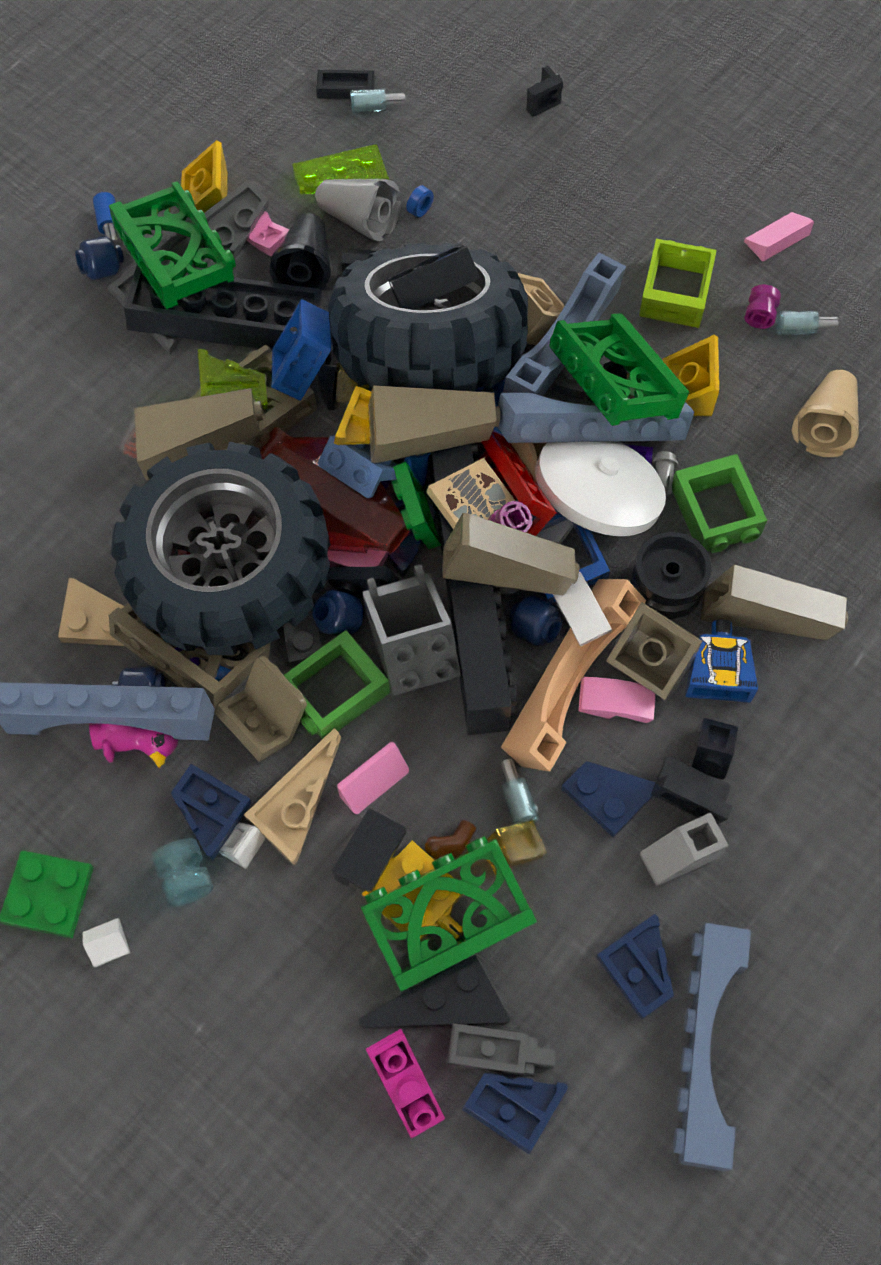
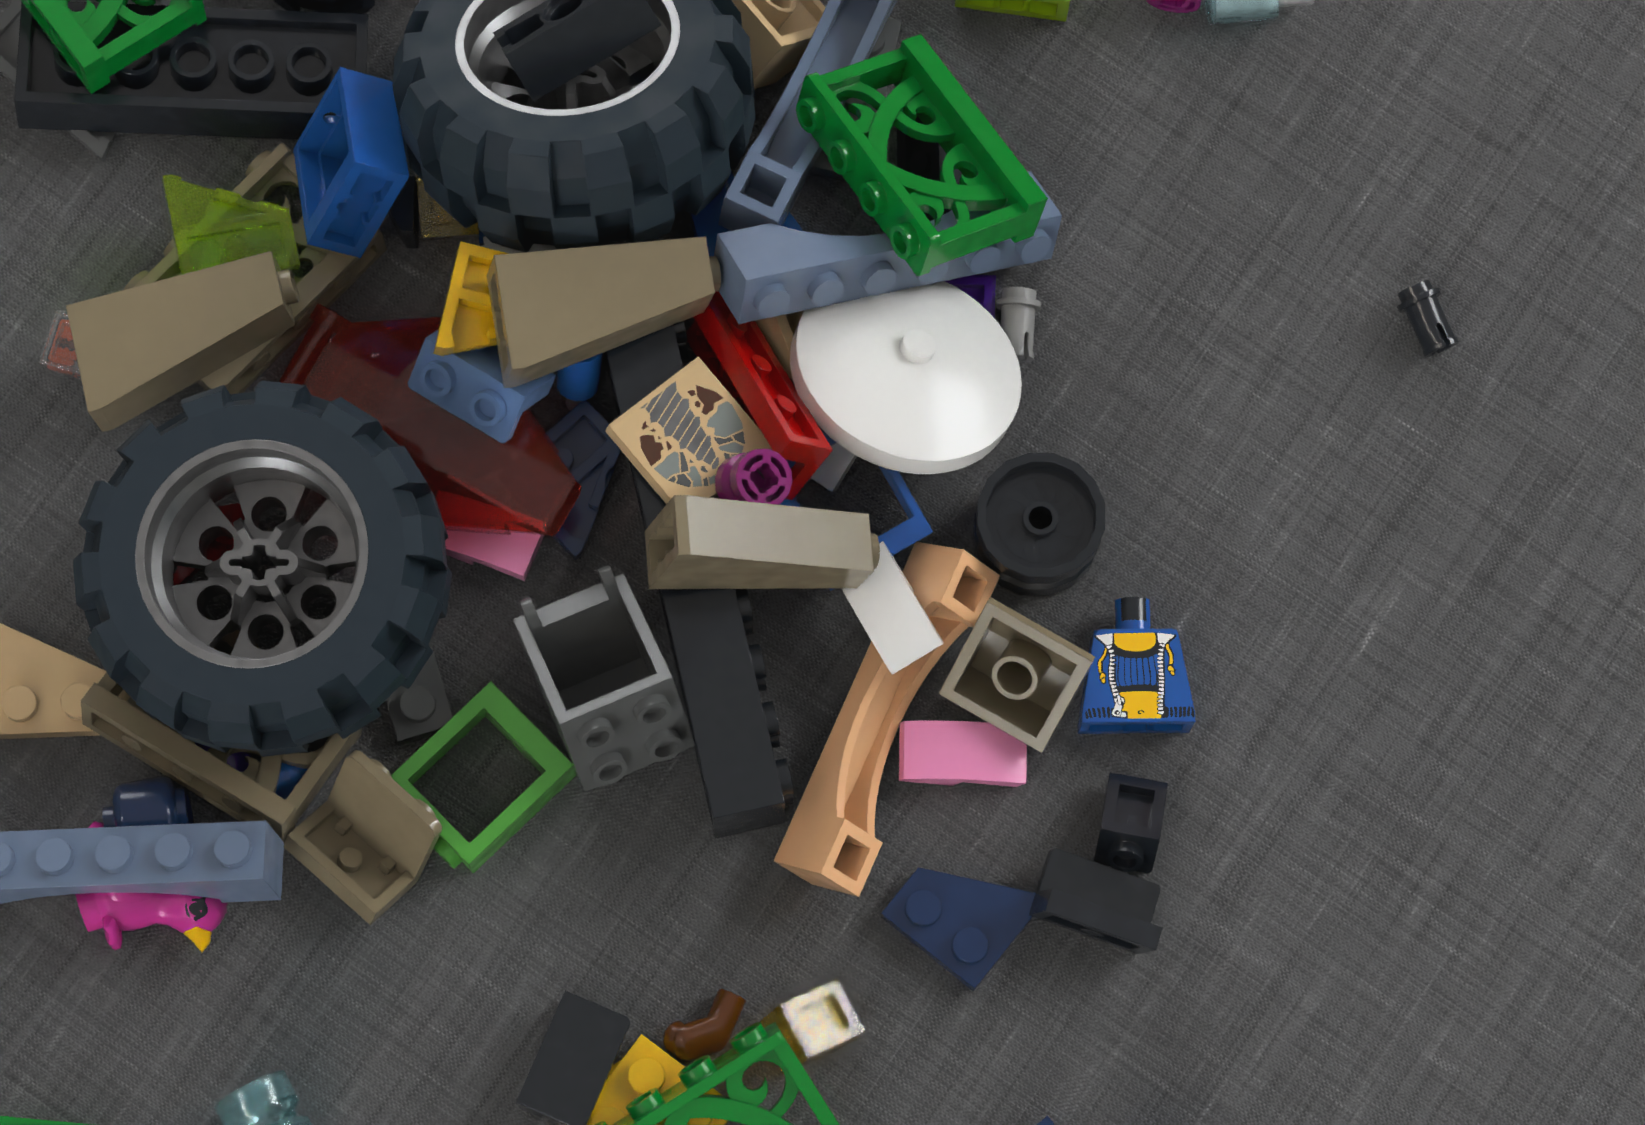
camera: 10 degrees left, 10 degrees up
(209, 808) = (296, 1012): dark blue wing -> none
(242, 844) = (358, 1066): white slope -> none
(290, 804) = (432, 993): tan wing -> none
(338, 612) = (474, 648): dark blue head -> none
(354, 579) = (494, 587): black wing -> none
(373, 778) = (565, 933): bright pink slope -> none
(417, 512) = (595, 462): green plate -> none
(518, 795) = (809, 939): clear light blue piece -> none
(535, 620) = (813, 627): dark blue head -> none
(684, 849) = (1087, 1006): light grey slope -> none
(699, 372) = (1057, 131): yellow slope -> none
(708, 476) = (1090, 327): bright green window -> none
(773, 604) = (1217, 562): dark tan slope -> none
(830, 416) = (1304, 187): tan cone -> none

